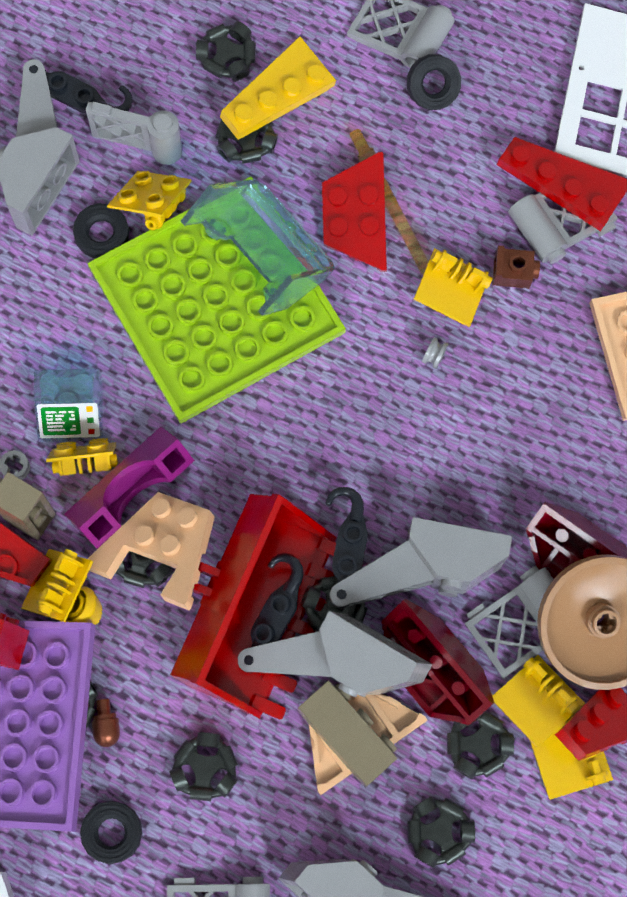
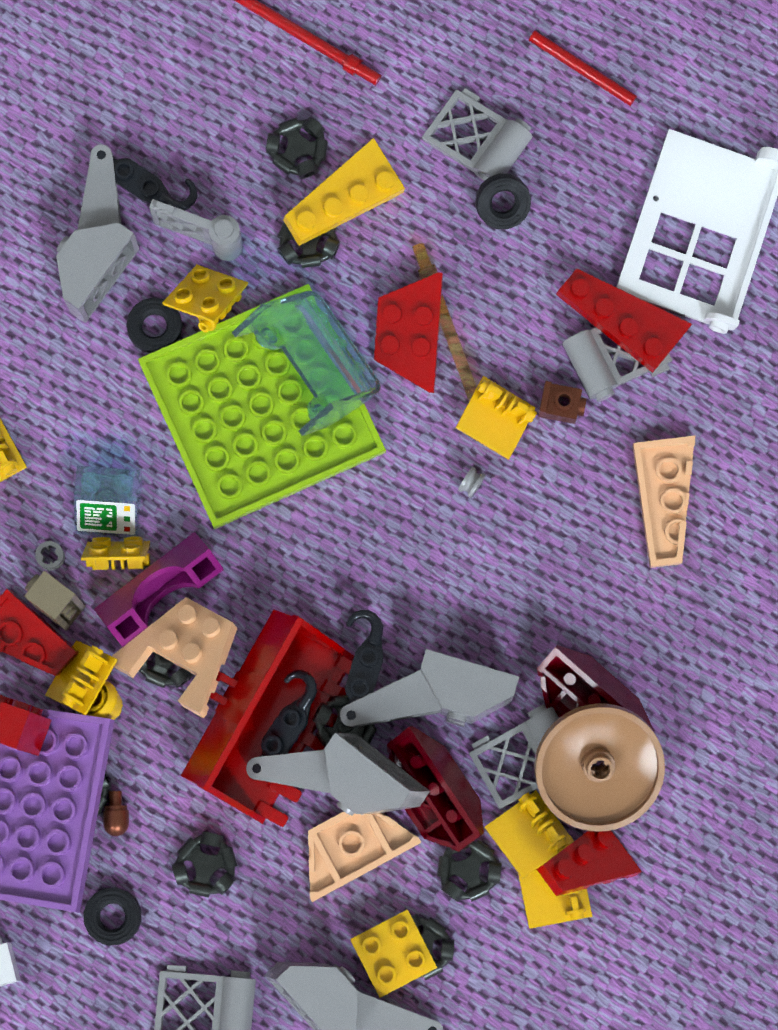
camera: 10 degrees right, 5 degrees up
(348, 733) = (343, 847): dark tan brick -> none
(412, 840) = (393, 953): none -> yellow hinge

